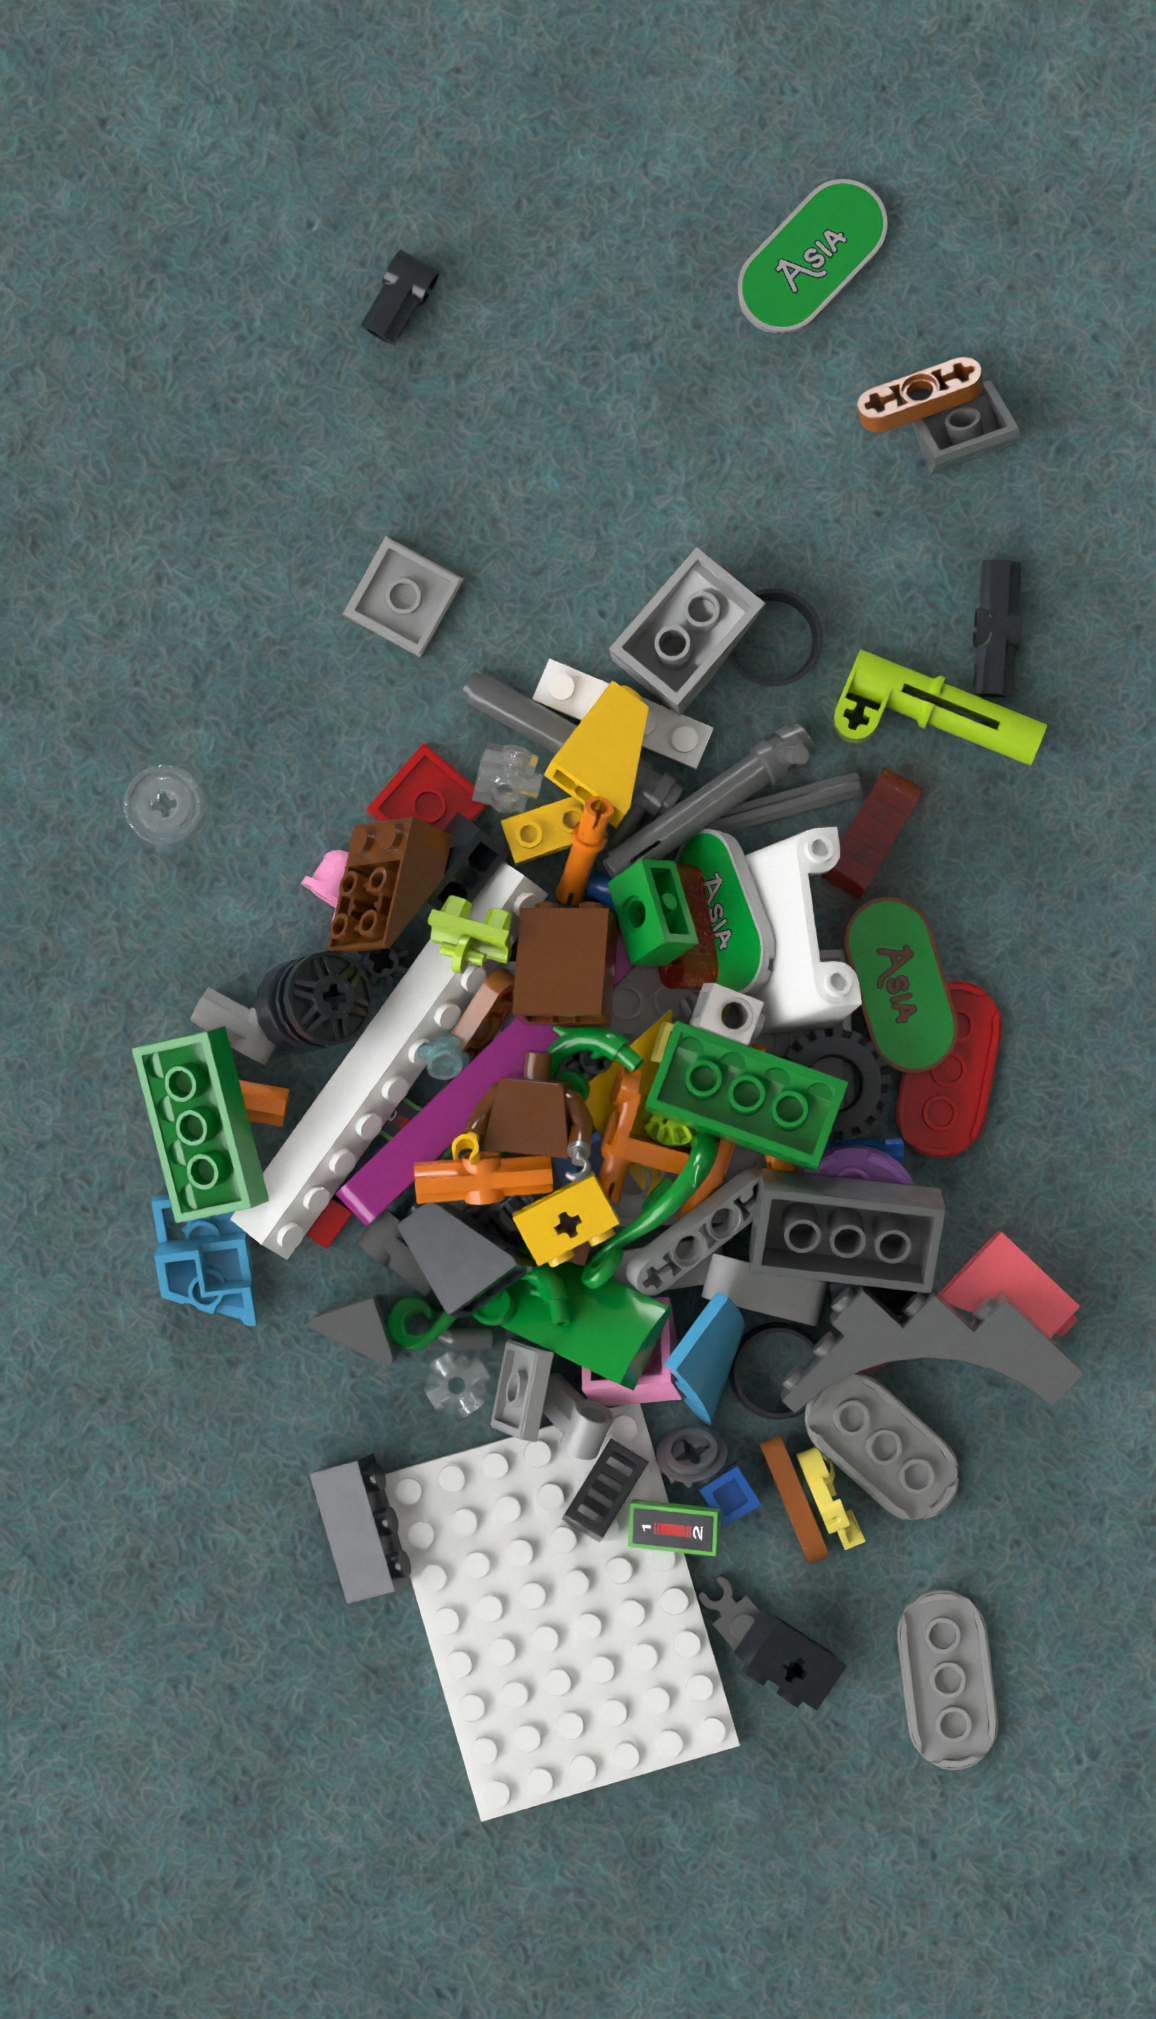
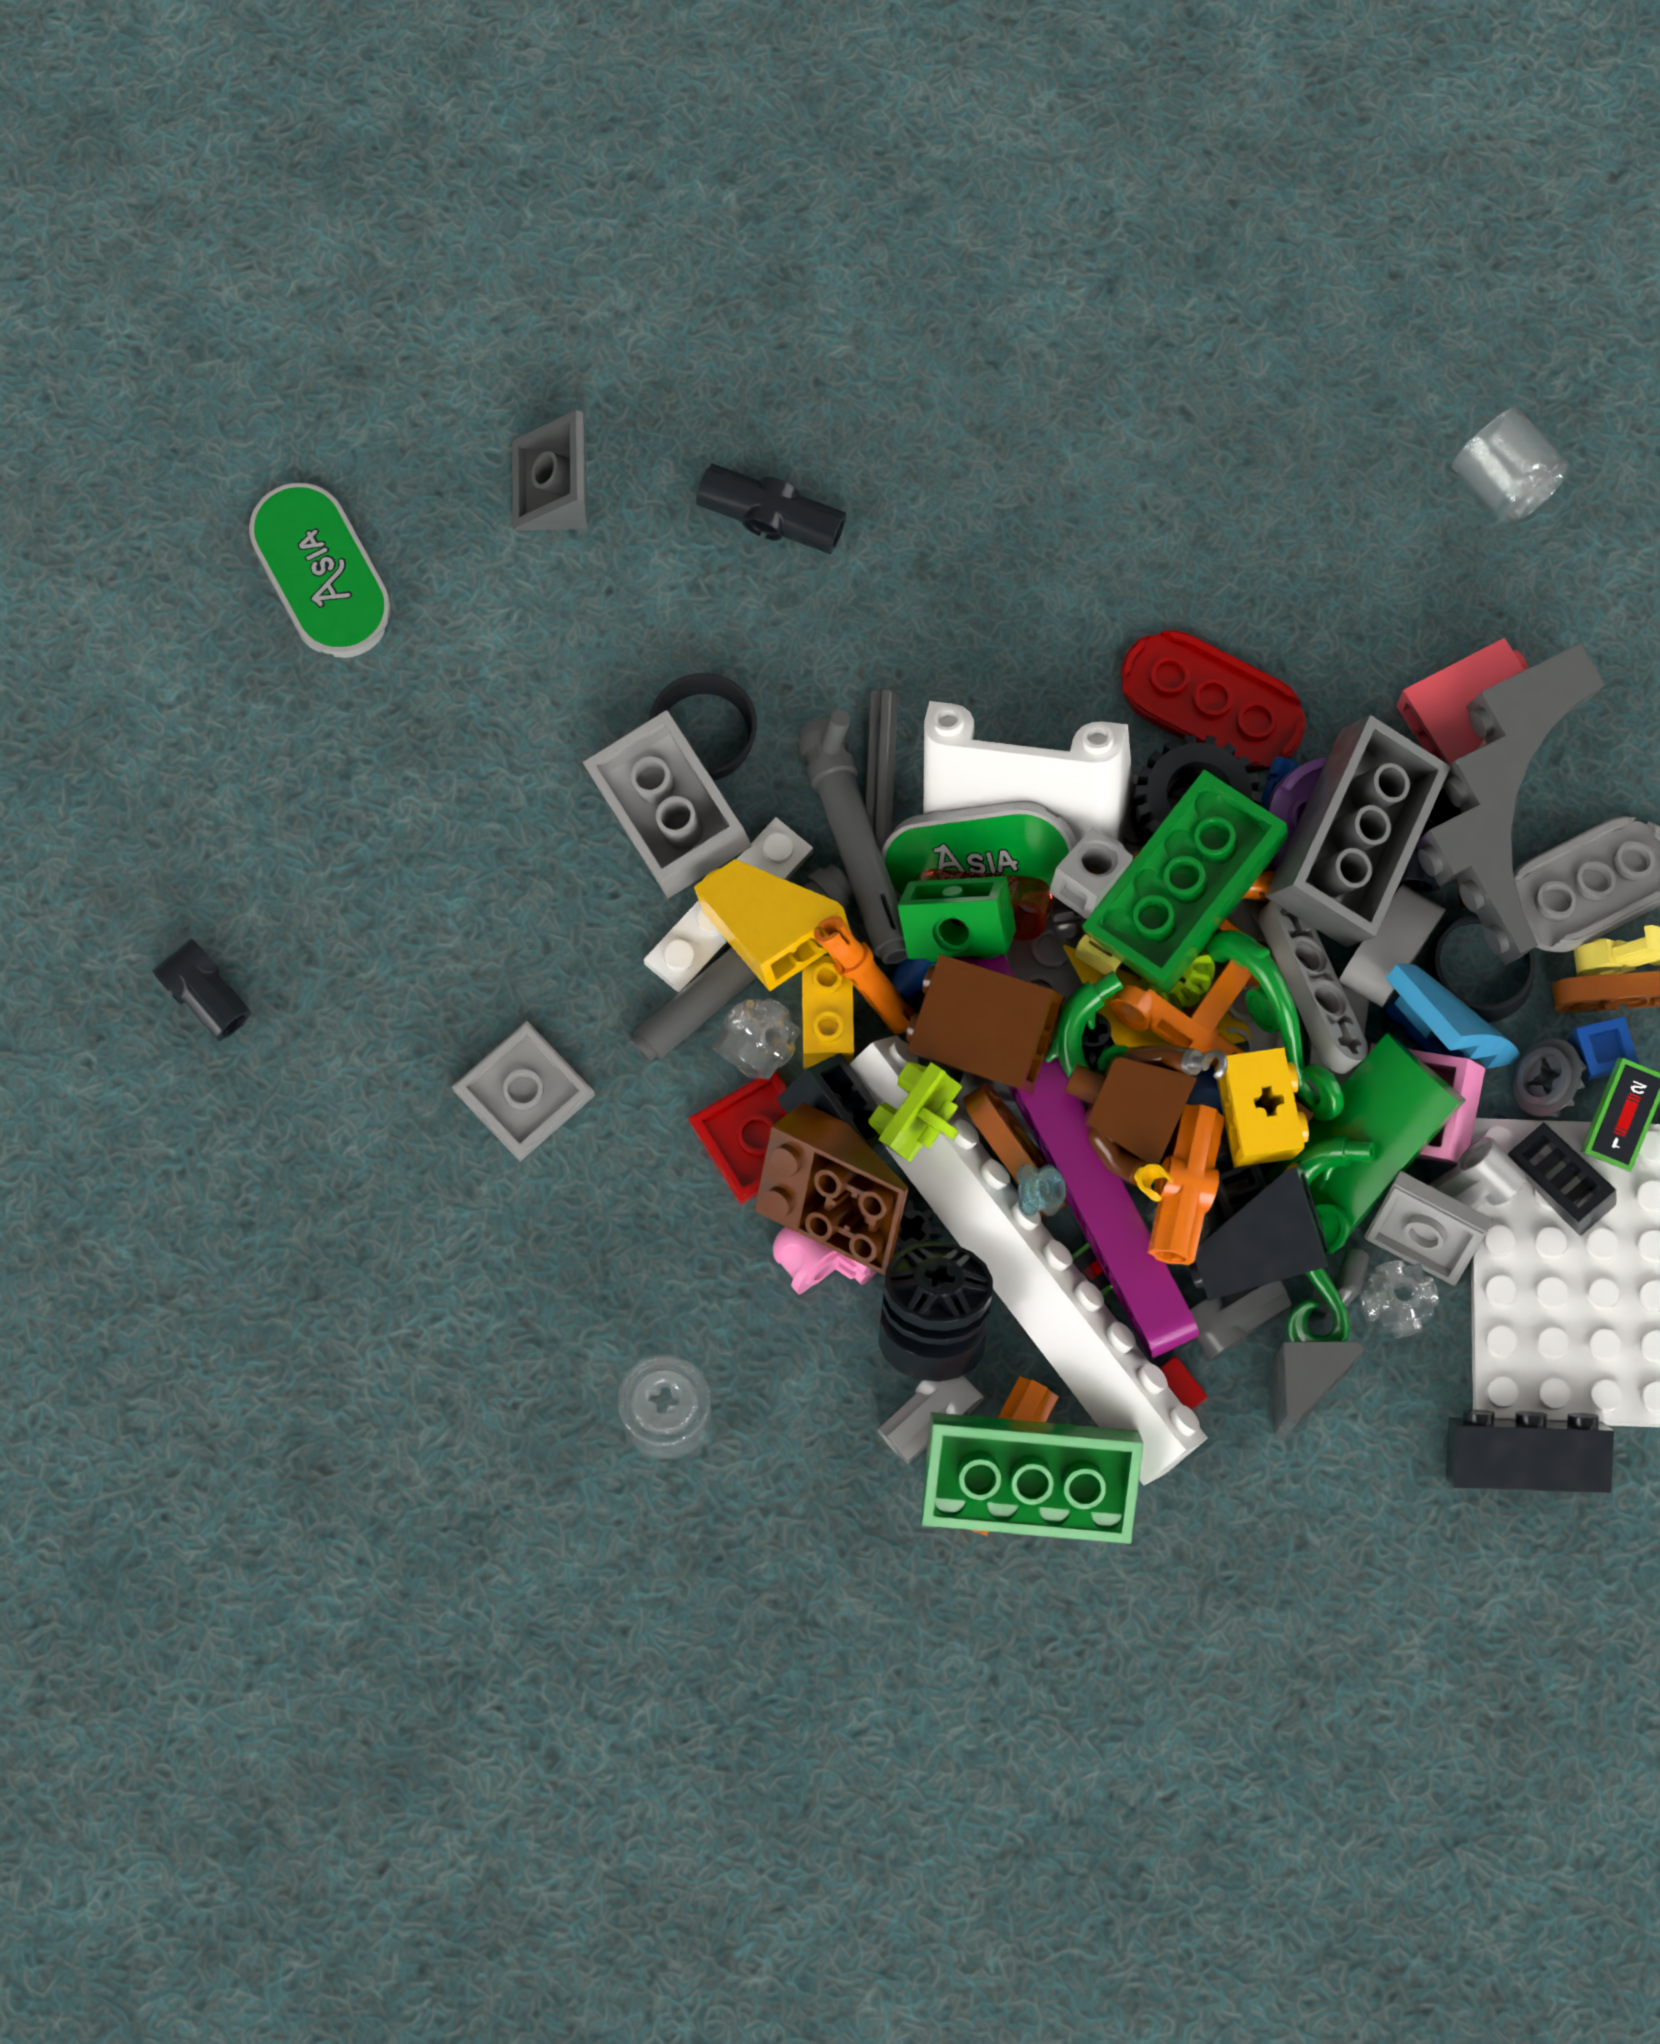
camera: 70 degrees left, 15 degrees down
(207, 1266) = (1185, 1534): dark azure slope -> none
(873, 832) = (926, 675): clear red beam -> none
(883, 684) = (826, 593): lime piece -> none
(901, 984) = (1152, 700): green tile -> none
(946, 373) = (513, 526): dark orange beam -> none

